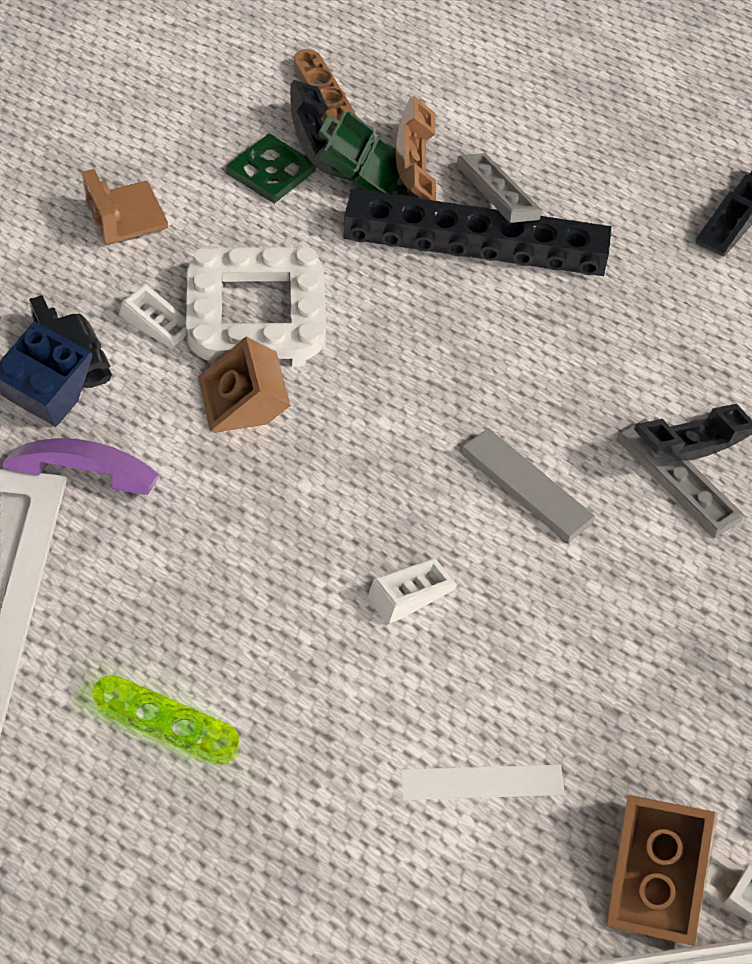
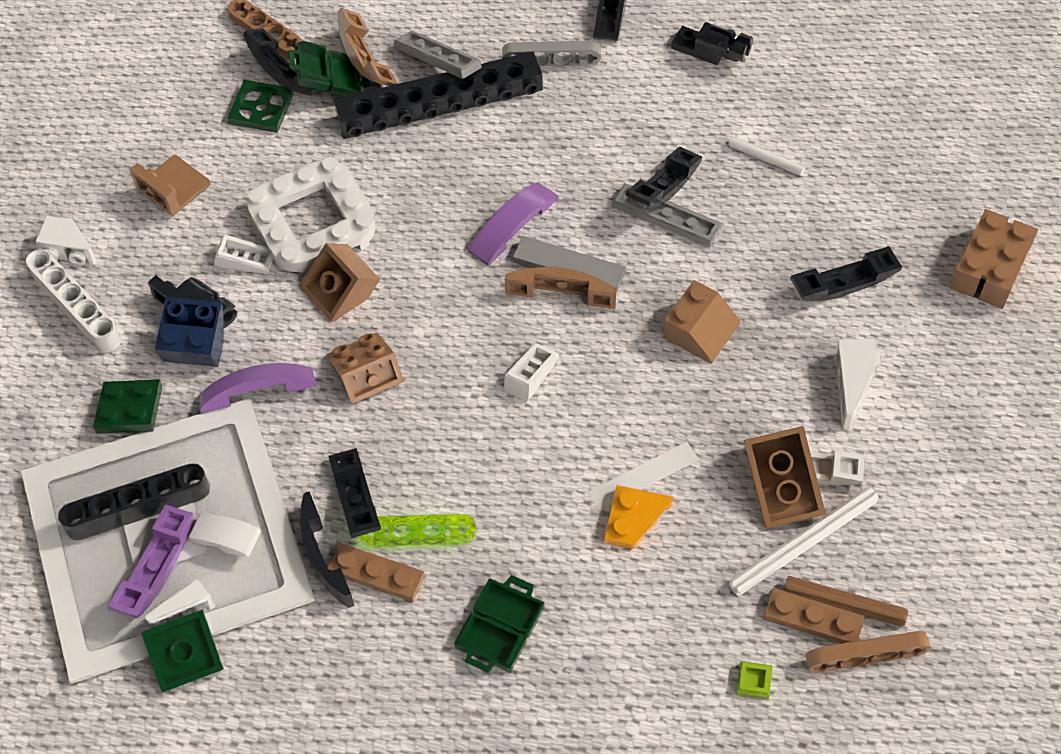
camera: 20 degrees left, 5 degrees up
(47, 650) = (334, 580): none -> black slope
(88, 748) = (377, 572): none -> medium nougat plate
(116, 641) = (354, 493): none -> black slope
(180, 897) = (499, 624): none -> dark green piece
(216, 499) = (365, 367): none -> medium nougat bracket
(441, 826) = (633, 515): none -> light orange wing
(462, 481) = (563, 280): none -> medium nougat slope
(482, 402) = (509, 220): none -> medium lavender slope
(636, 233) = (551, 51): none -> light grey beam
(653, 622) = (701, 322): none -> medium nougat slope

